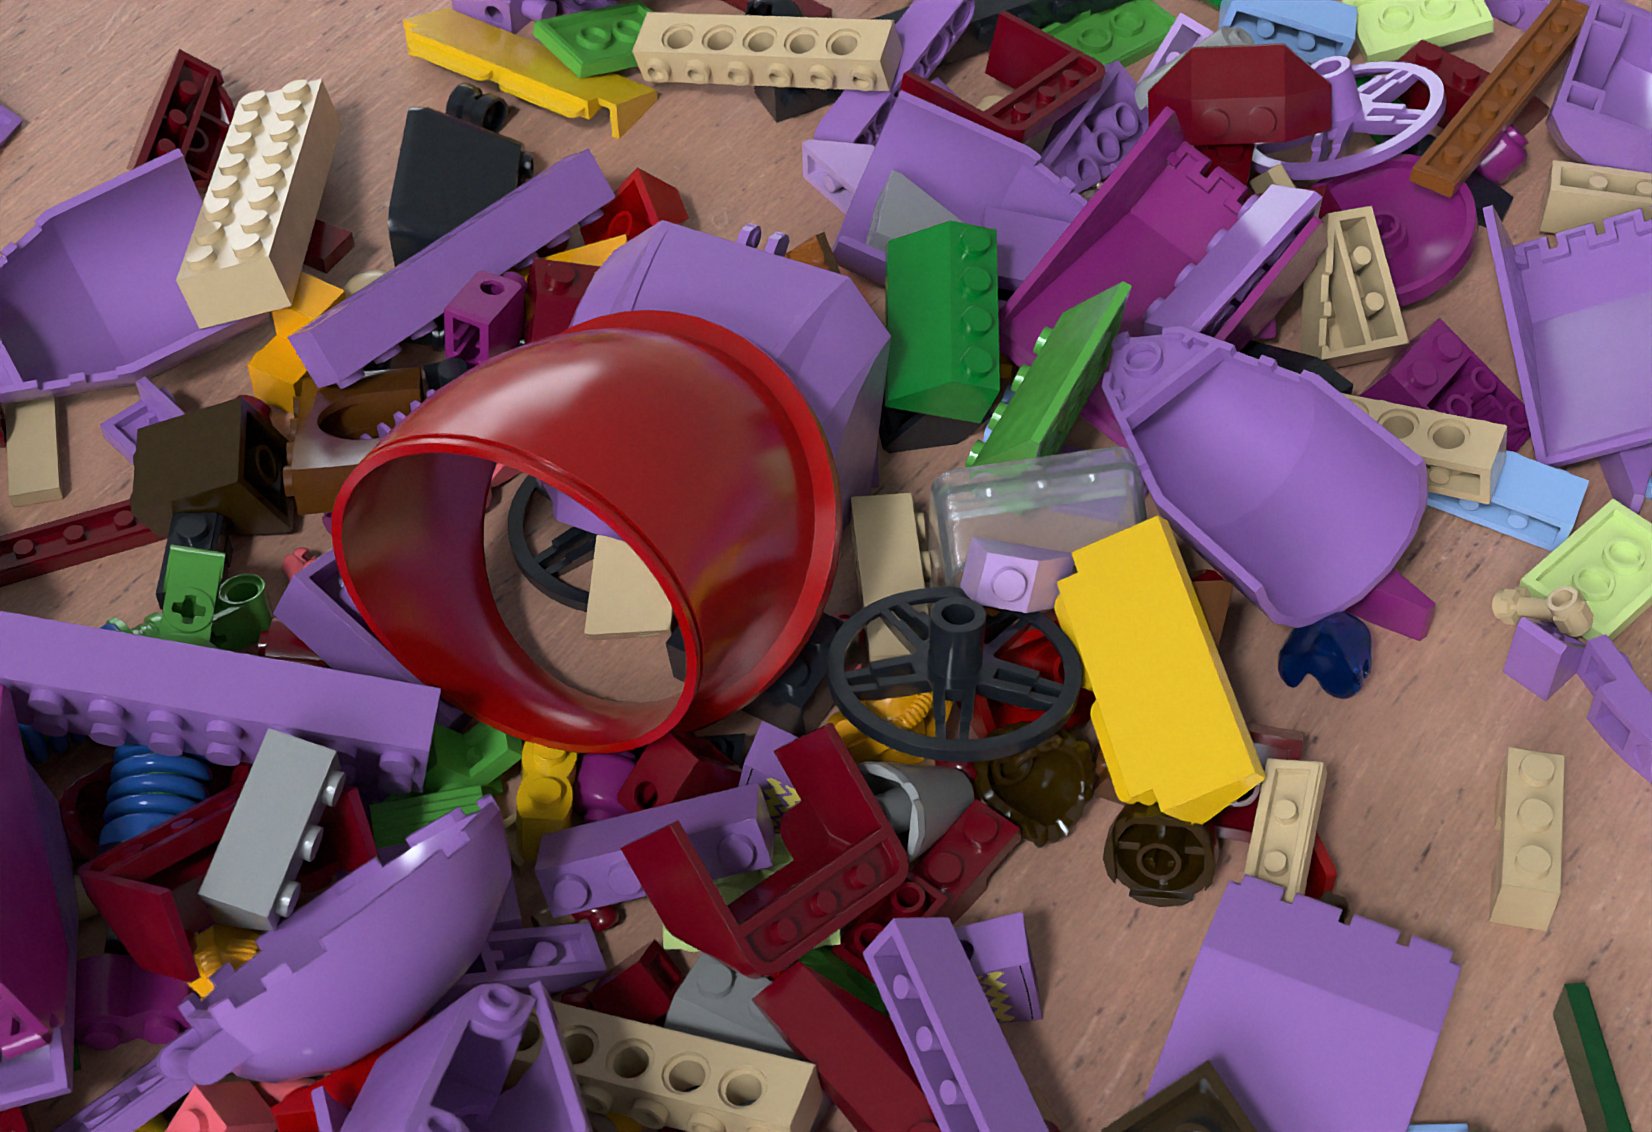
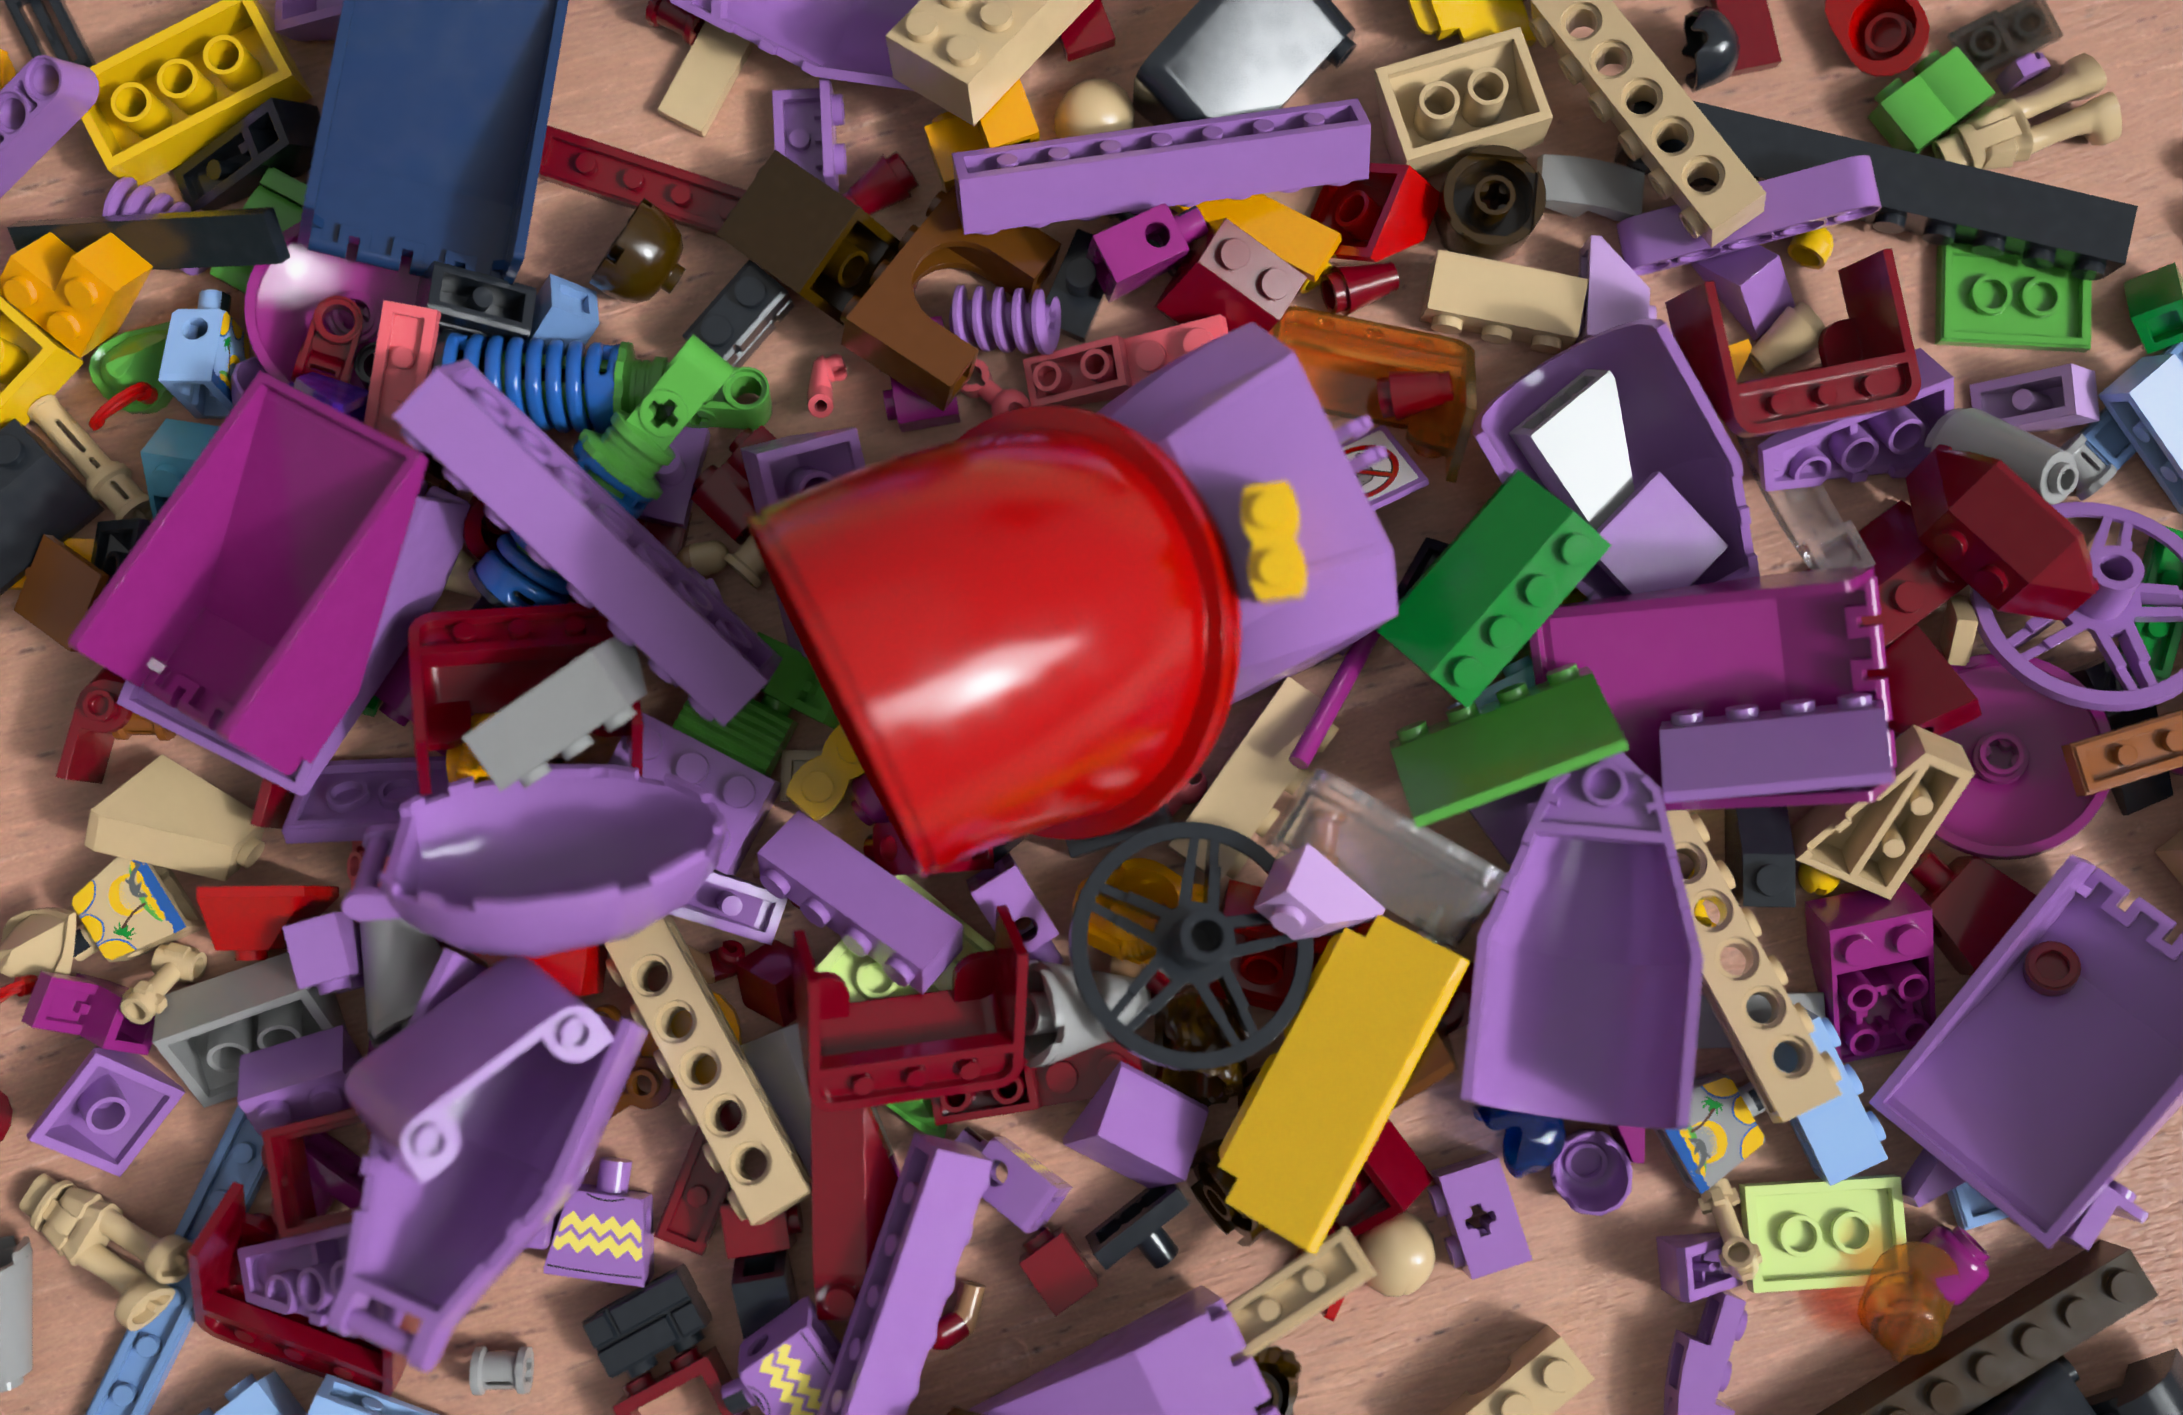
camera: 35 degrees right, 35 degrees up
(75, 576) = (642, 257): none -> dark brown cylinder
(646, 126) = (1461, 100): none -> tan slope
(716, 173) = (1514, 194): none -> dark brown brick
(760, 303) = (1273, 526): none -> yellow brick
(767, 134) = (1591, 185): none -> light grey slope
(794, 206) = (1503, 301): none -> tan brick
(898, 480) = (1332, 700): none -> magenta bar
(957, 78) = (1811, 248): none -> yellow hinge
(1045, 862) = (1139, 1128): none -> medium lavender slope
(1083, 1020) = (1057, 1268): none -> dark red brick
(1118, 940) = (1140, 1226): none -> black tile
(1345, 815) = (1400, 1254): none -> tan hair
(1356, 374) = (1816, 880): none -> yellow hinge
(1364, 736) = (1500, 1238): none -> medium lavender brick
(1409, 646) = (1592, 1172): none -> medium lavender hair
(1455, 564) = (1719, 1131): none -> torso
(1475, 316) = (1969, 906): none -> dark red torso
(1555, 316) = (2051, 968): none -> dark red tile

